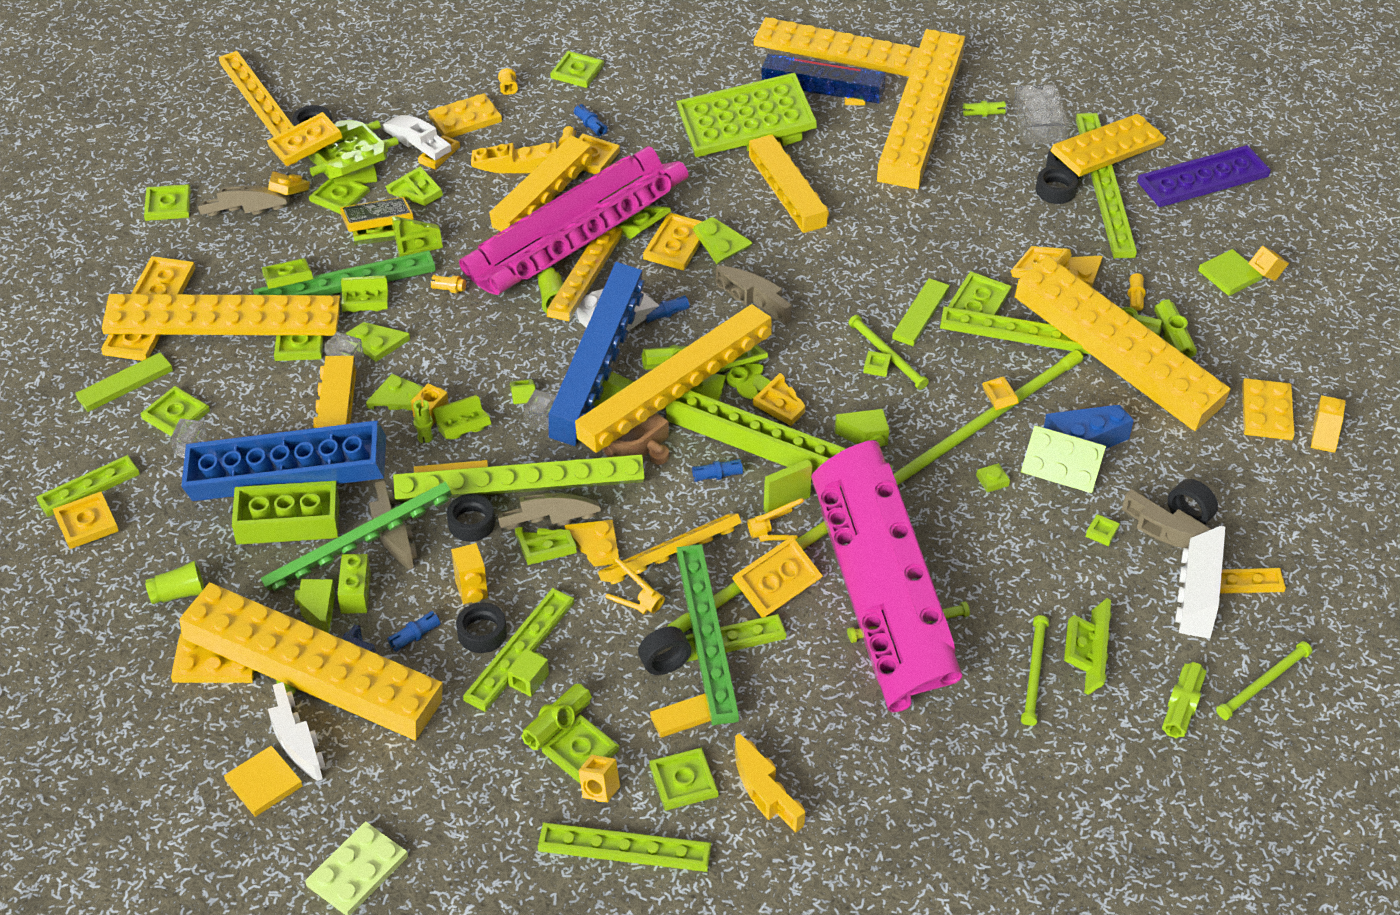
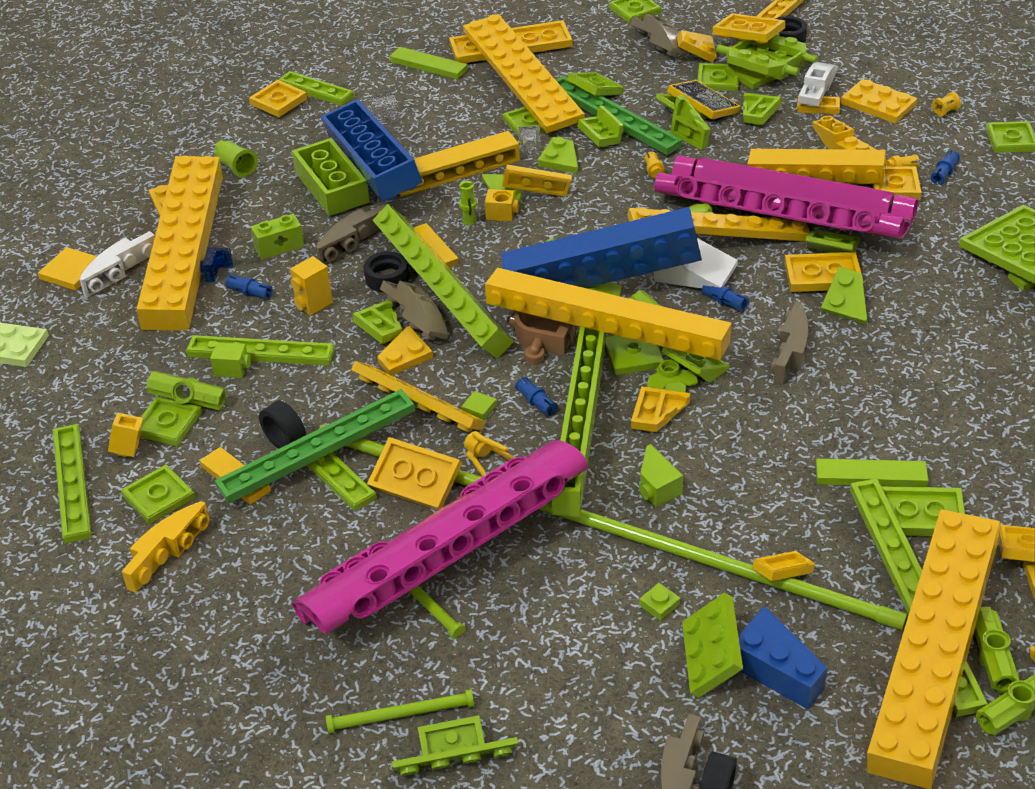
camera: 70 degrees right, 5 degrees down
(171, 407) = (415, 95): lime tile -> none
(316, 602) = (239, 232): lime slope -> none
(348, 542) = (319, 214): bright green plate -> none
(421, 364) = (536, 180): none -> yellow tile
(461, 417) = (495, 225): lime bracket -> none
(483, 643) = (268, 330): black tyre -> none
(649, 598) = (349, 400): yellow plant -> none
(703, 511) = (479, 405): none -> lime tile
(787, 485) = (523, 434): lime tile -> none
(788, 183) = (975, 315): yellow brick -> none
(877, 363) = (760, 460): lime plate -> none
(920, 381) = (761, 502): lime bar -> none
(1102, 530) = (634, 716): lime plate -> none

